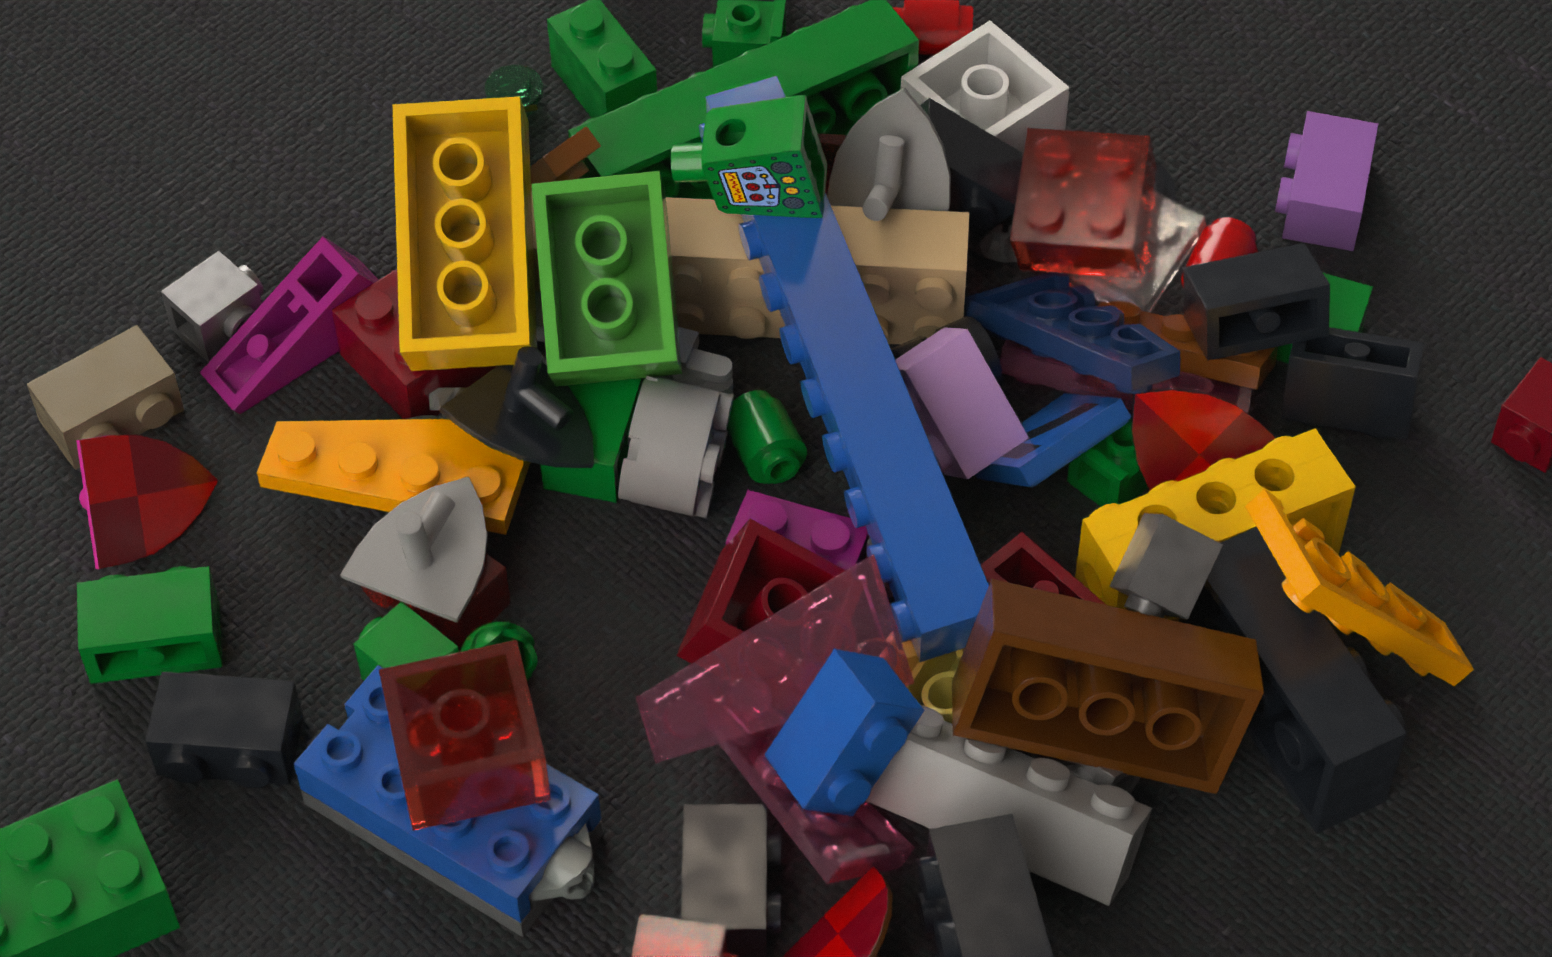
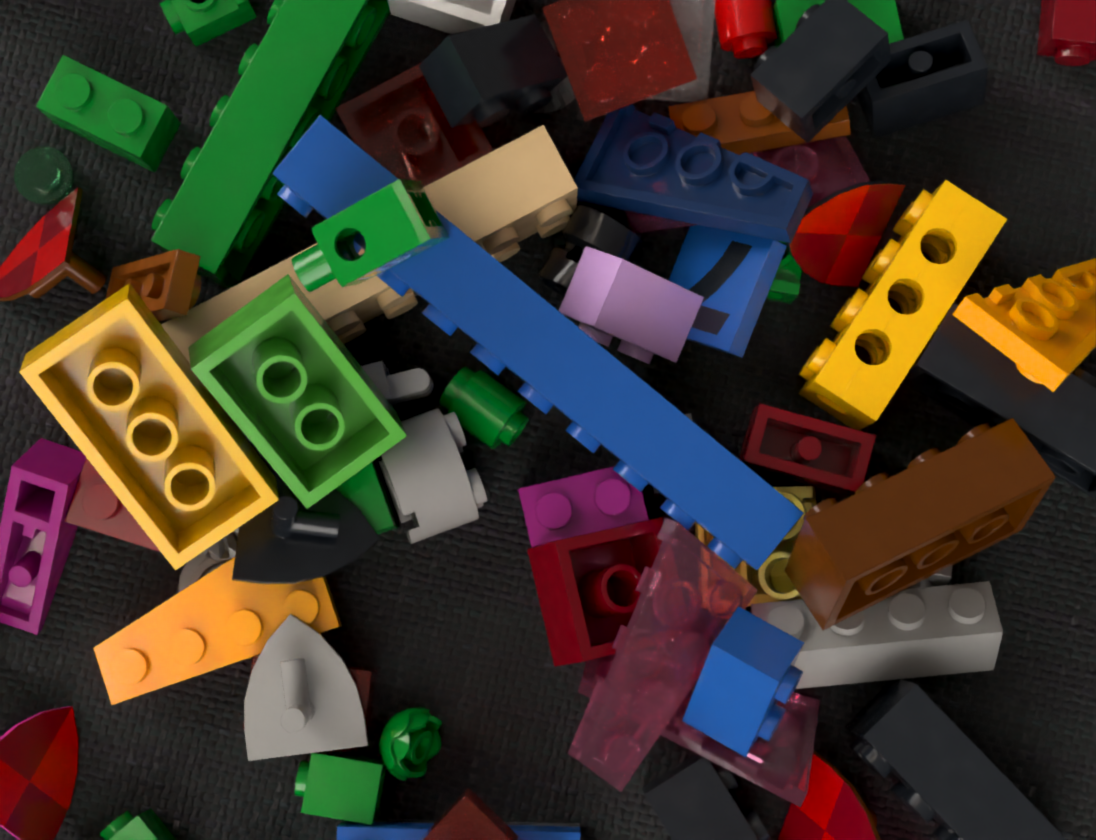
camera: 30 degrees left, 30 degrees up
(892, 161) = (457, 121): light grey shield -> none
(1165, 567) = (915, 402): flat silver brick -> none

